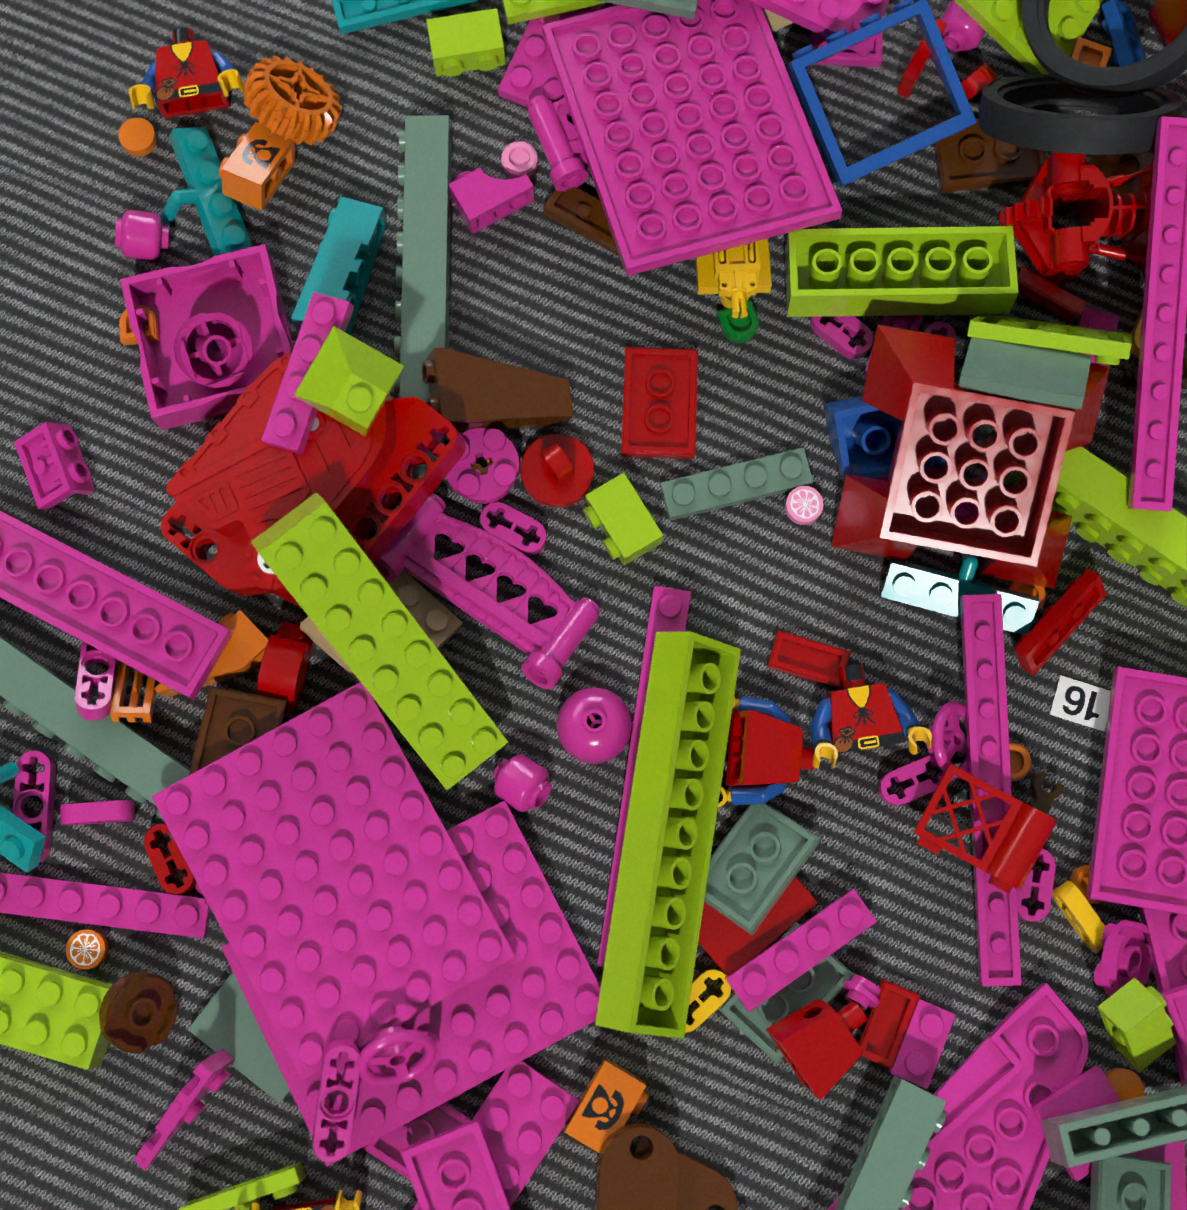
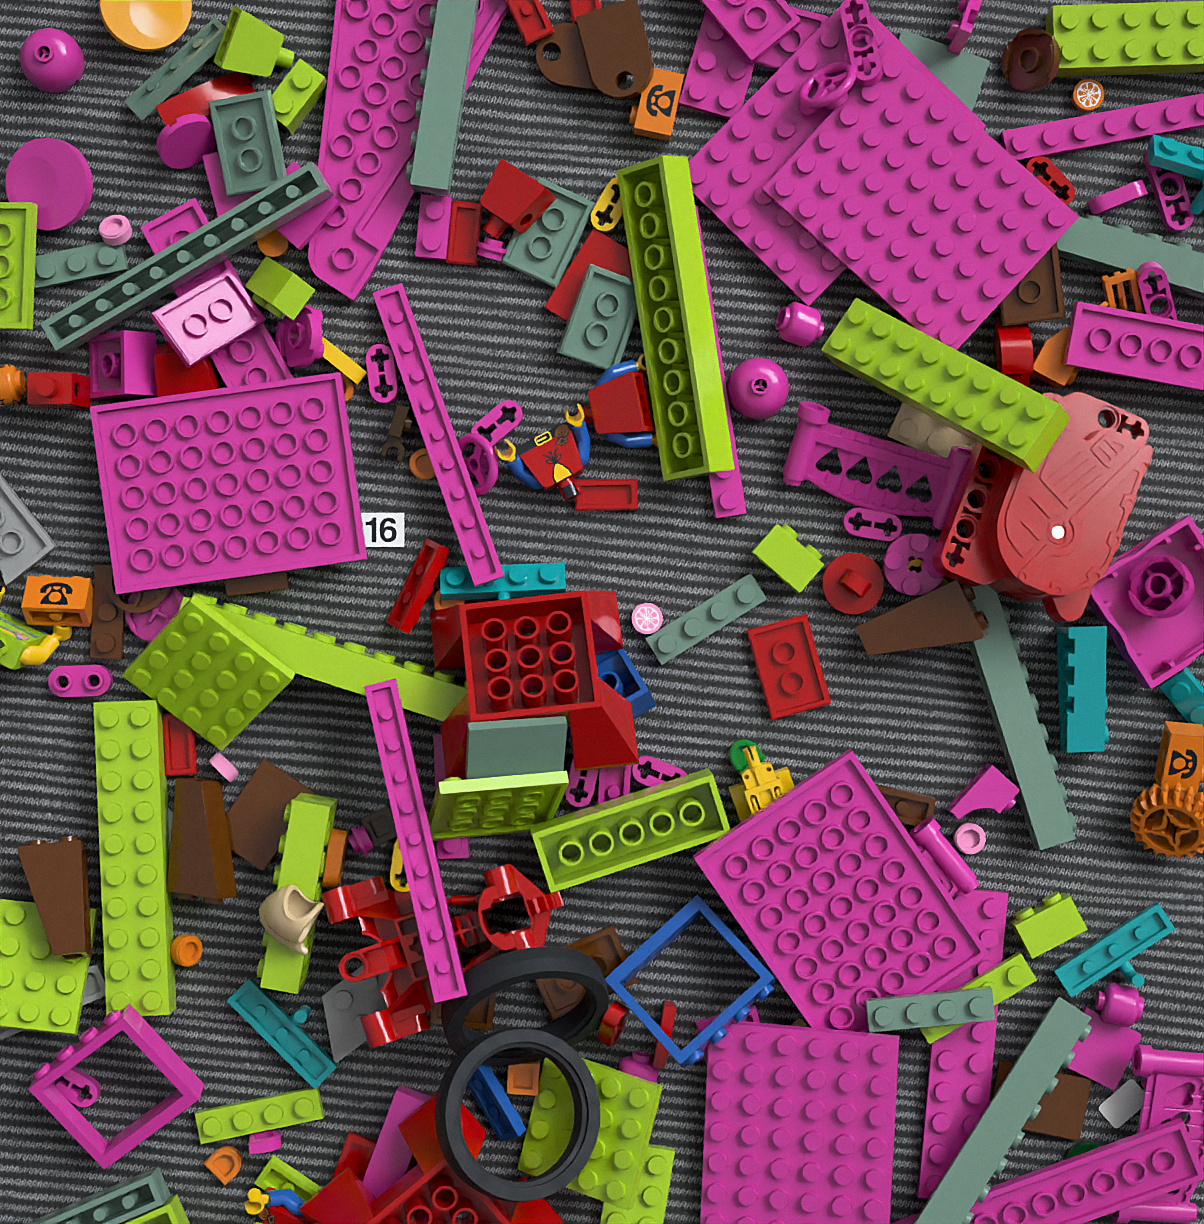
camera: 170 degrees right, 10 degrees up
(290, 417) = (1074, 569): dark pink plate -> none
(349, 381) = (1039, 568): lime slope -> none
(800, 950) = (547, 265): dark pink plate -> none
(1014, 843) = (410, 393): red piece -> none
(1049, 295) = (501, 856): red tile -> none

